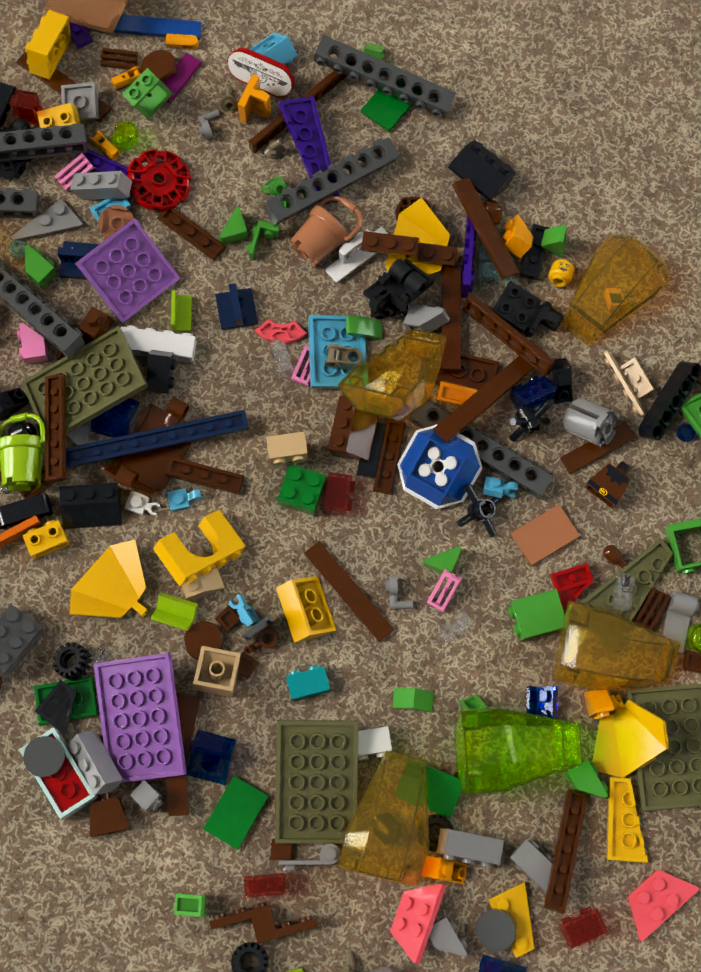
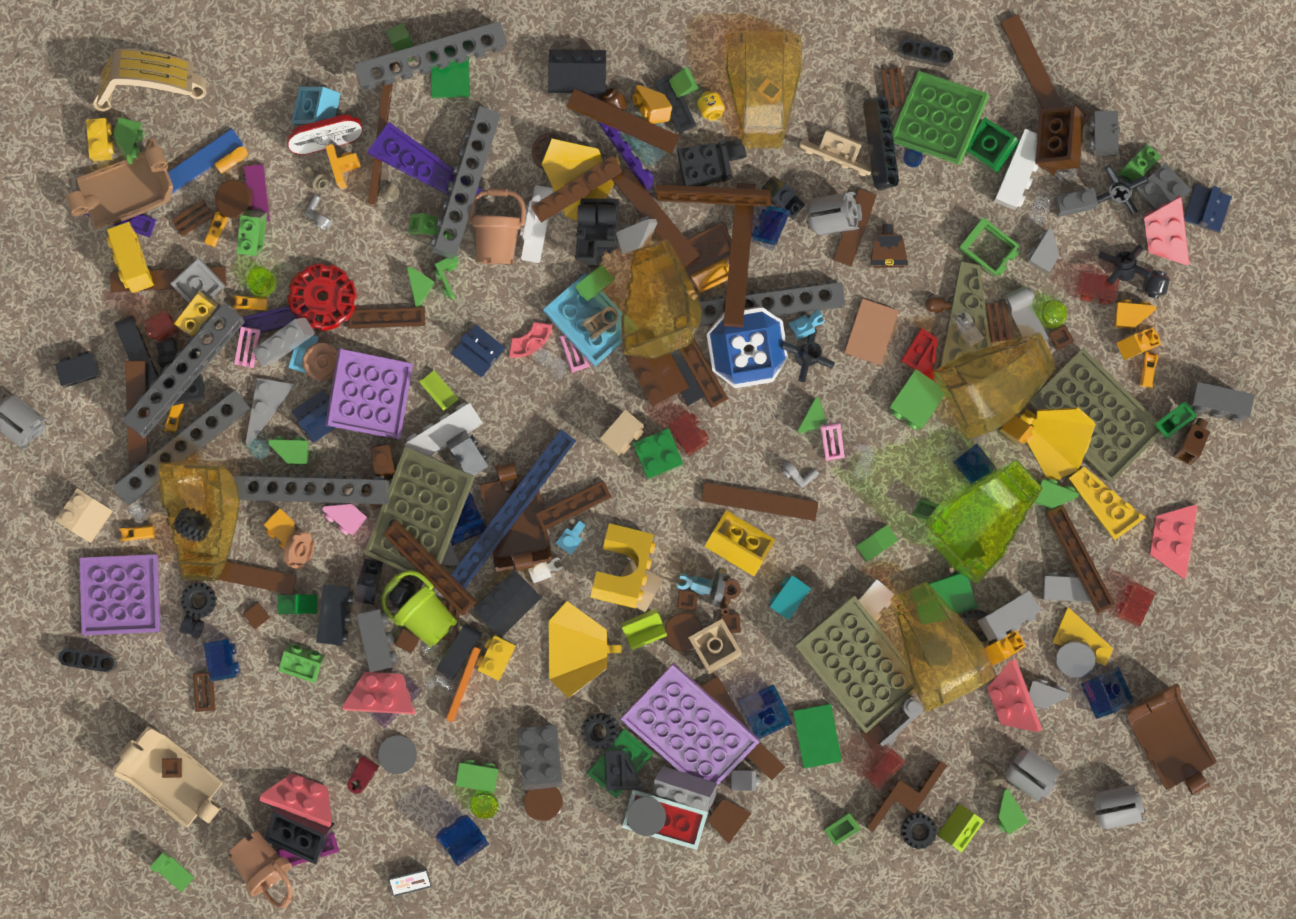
camera: 40 degrees left, 10 degrees up
(529, 420) = (787, 252): black bar -> none

